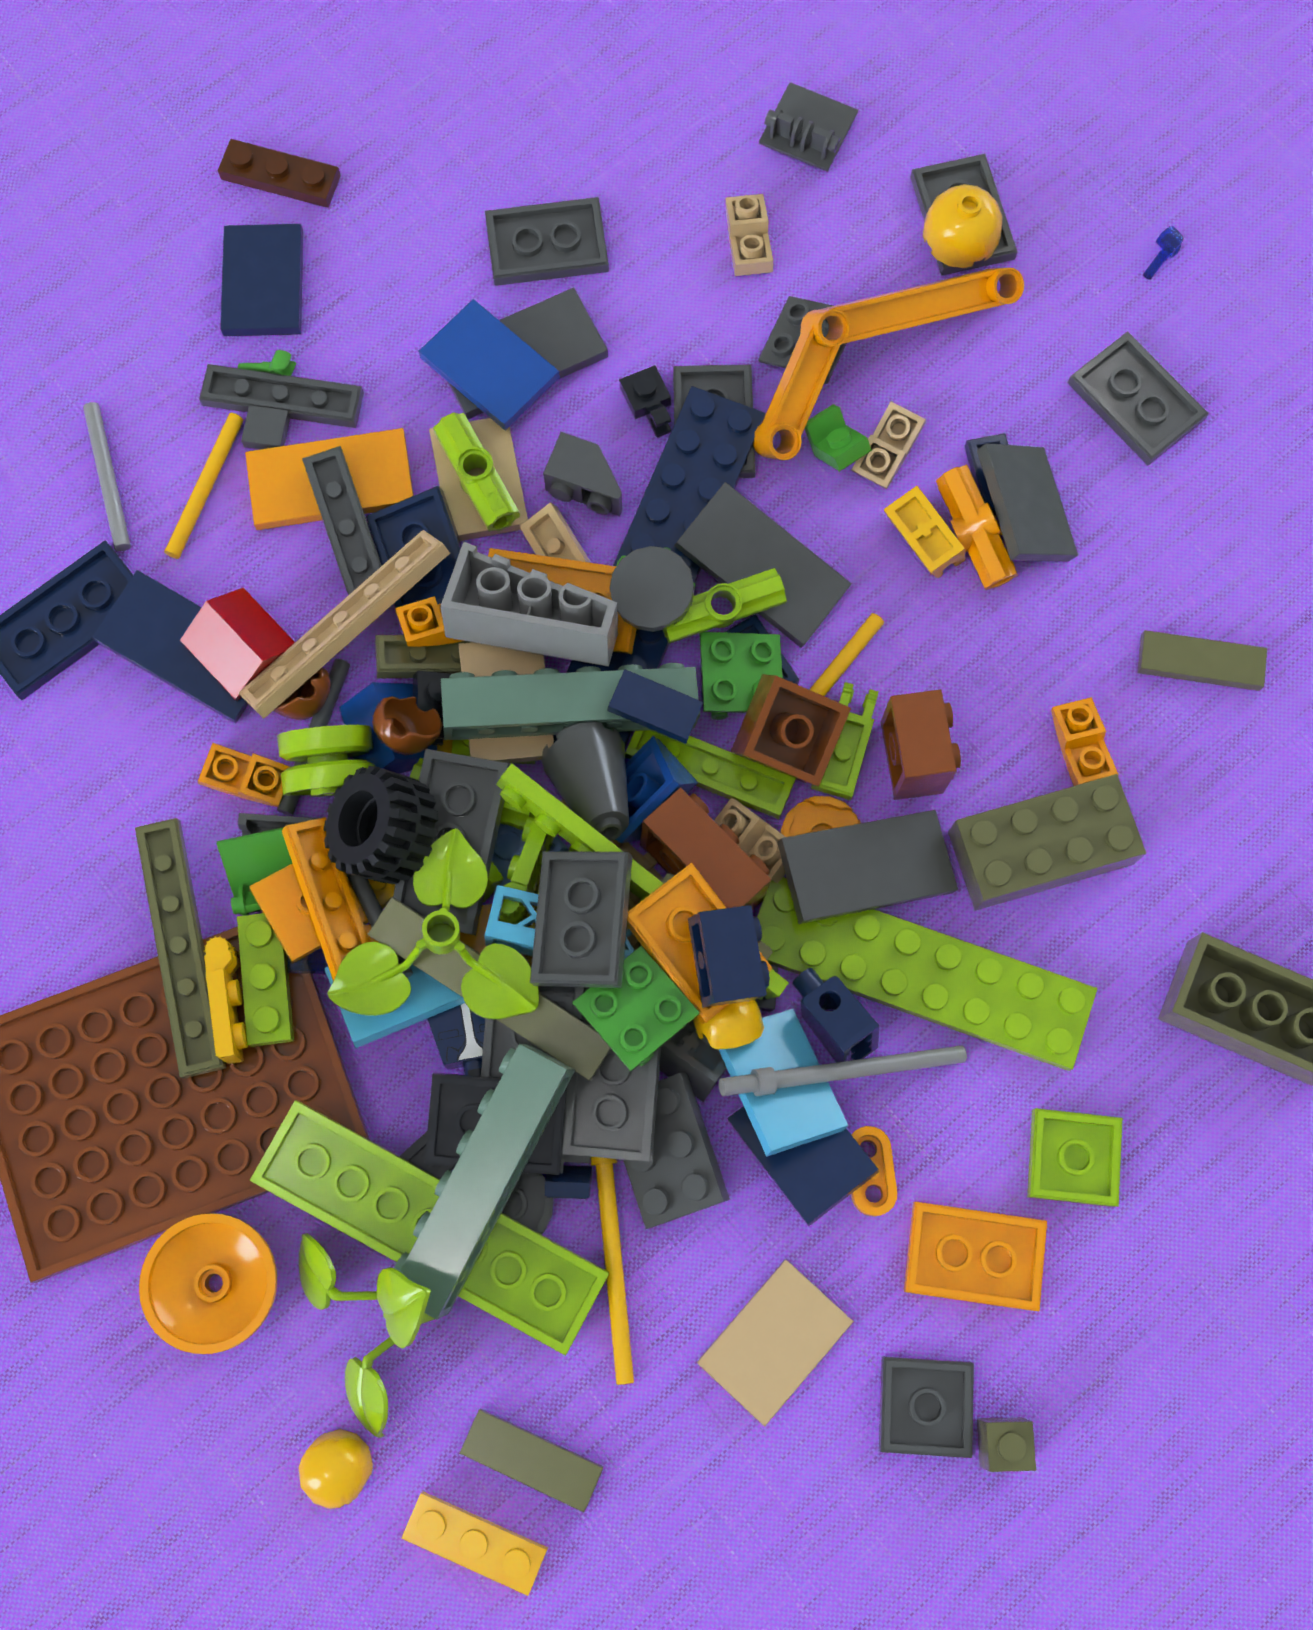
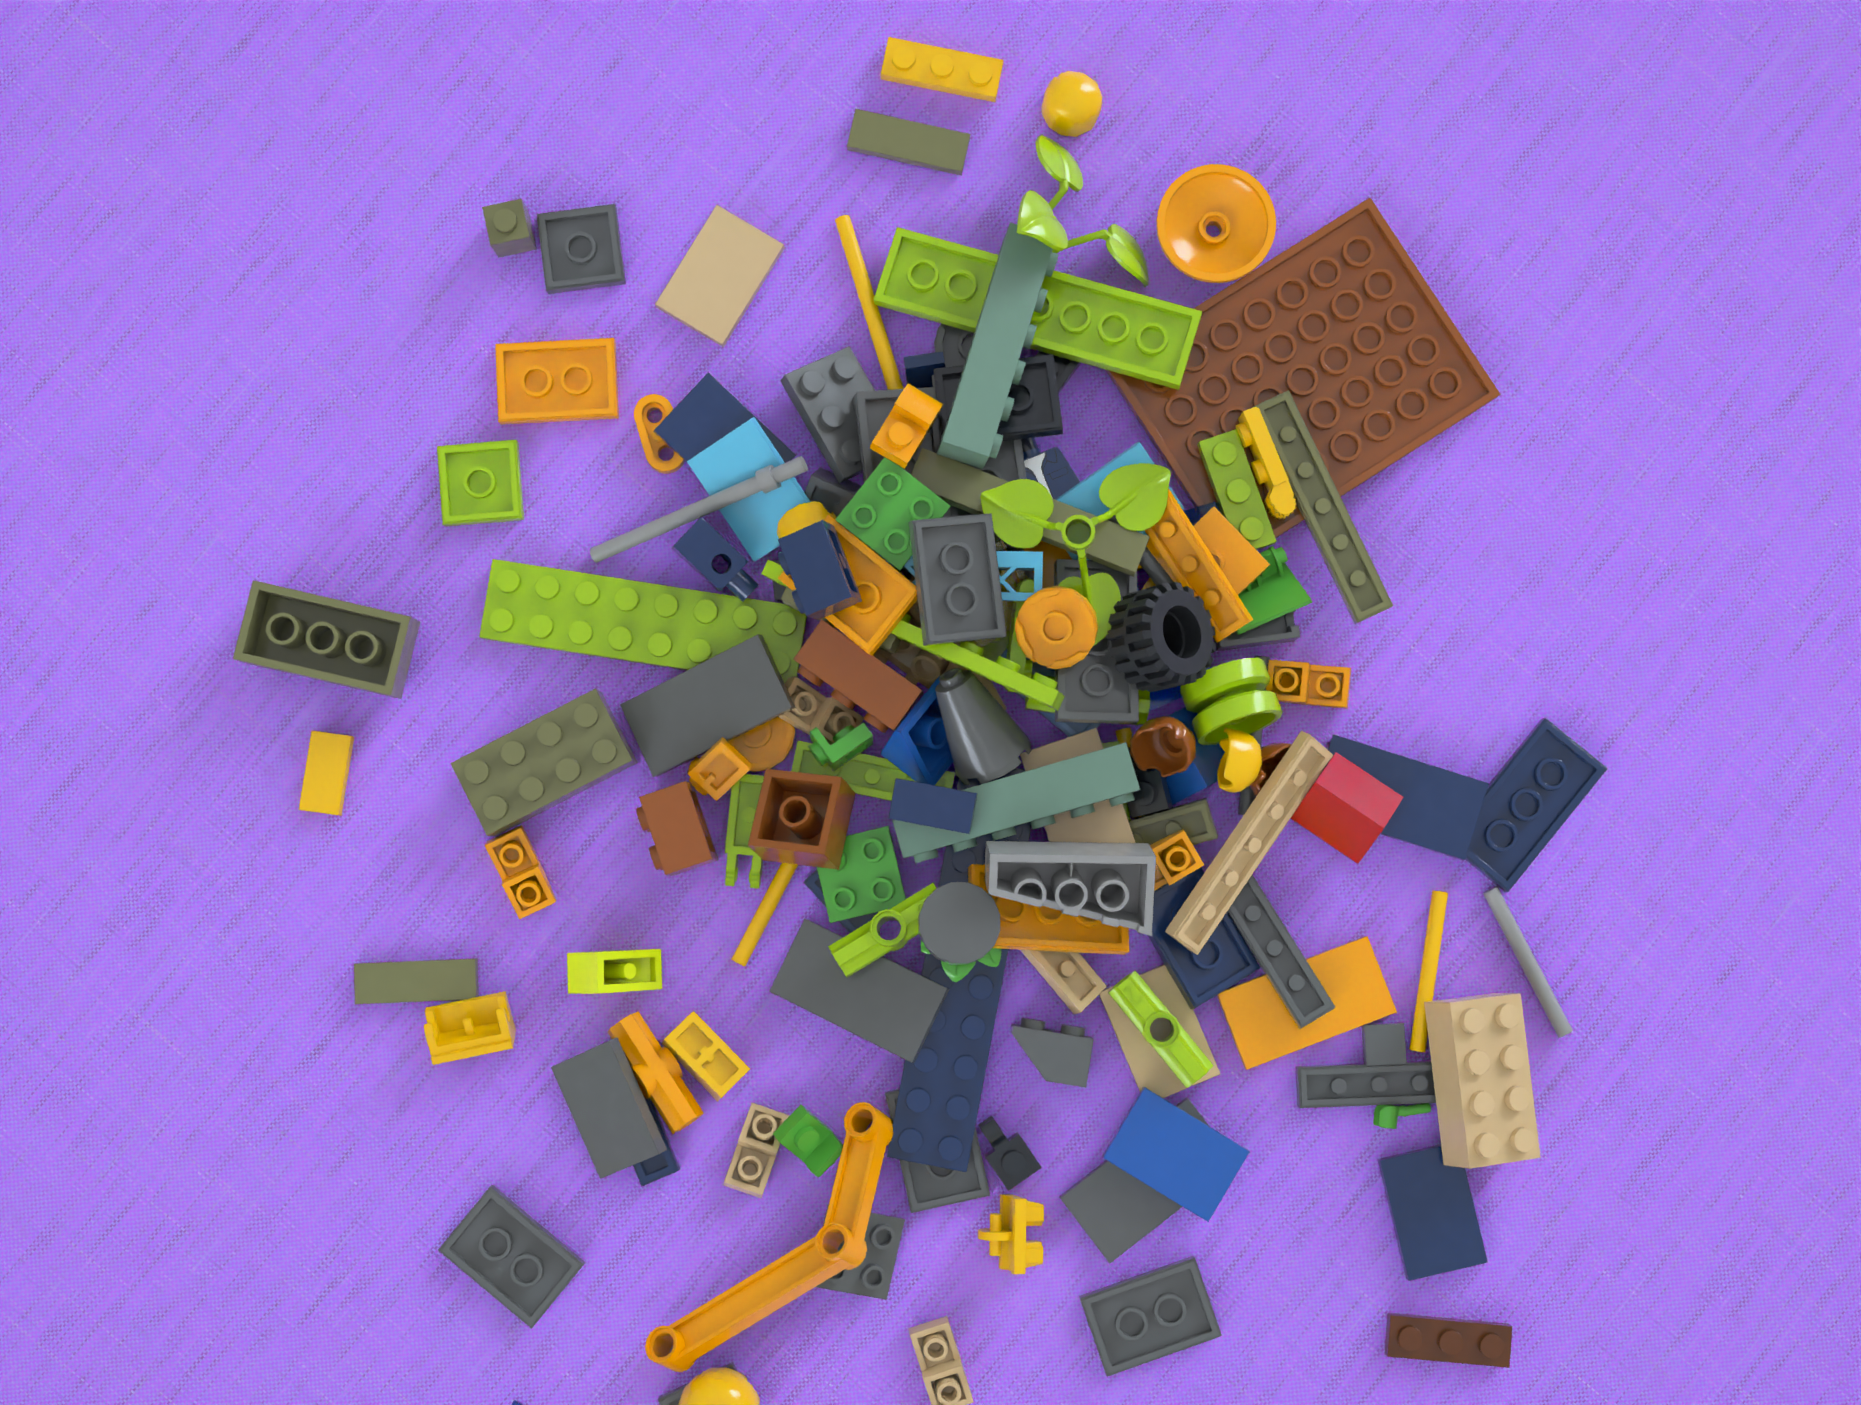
camera: 165 degrees right, 10 degrees up
(180, 371) = (1482, 1080): none -> tan brick
(335, 696) = (1240, 761): none -> yellow hair
(487, 852) = (1056, 627): none -> light orange tile
(599, 1103) = (906, 425): none -> light orange brick
(662, 329) = (1008, 1234): none -> yellow hips
(729, 794) = (847, 745): none -> bright green bracket
(867, 797) = (718, 769): none -> light orange bracket
(1004, 628) = (614, 971): none -> neon yellow slope
(1155, 601) = (469, 1028): none -> yellow hinge
(1273, 880) = (326, 773): none -> yellow tile

